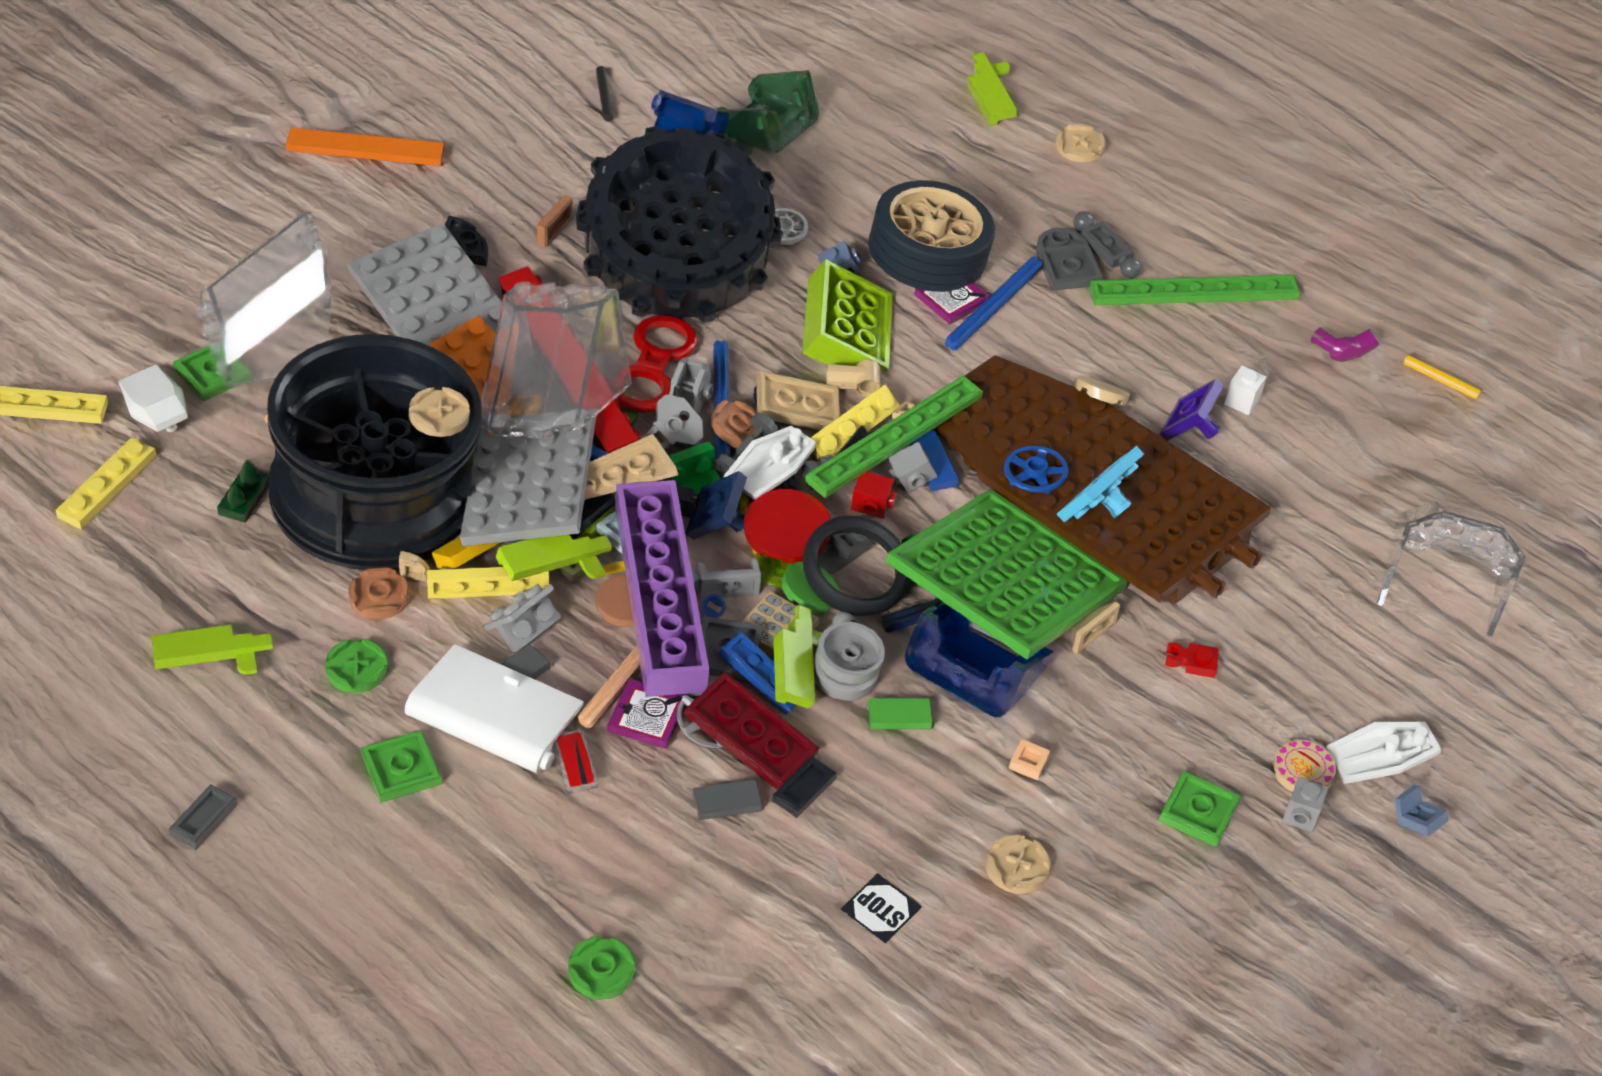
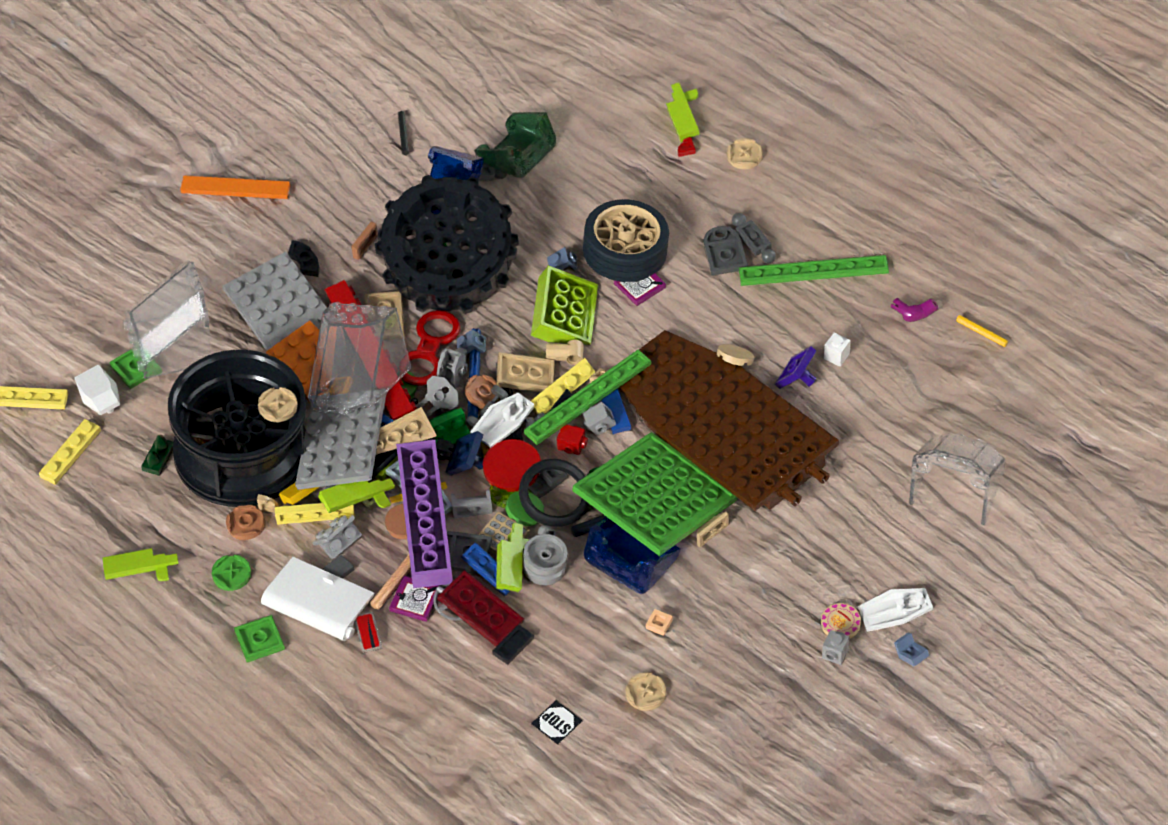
camera: 10 degrees right, 5 degrees up
(203, 817) = (138, 675): dark grey tile -> none
(601, 968) = (380, 764): bright green tile -> none
(716, 600) = (459, 528): blue hinge -> none
(717, 356) = (471, 341): none -> sand blue bracket
(727, 799) = (463, 654): dark grey tile -> none
(788, 225) = (525, 234): white wheel -> none
(899, 713) = (578, 593): bright green tile -> none
(993, 303) = (668, 289): blue axle -> none
(1000, 131) = (686, 147): none -> red tile
(1035, 468) = (681, 417): blue wheel -> none
(1104, 489) = (722, 433): medium azure plate -> none
(1198, 658) = (779, 549): red plate -> none
(1199, 808) = (768, 651): bright green tile -> none

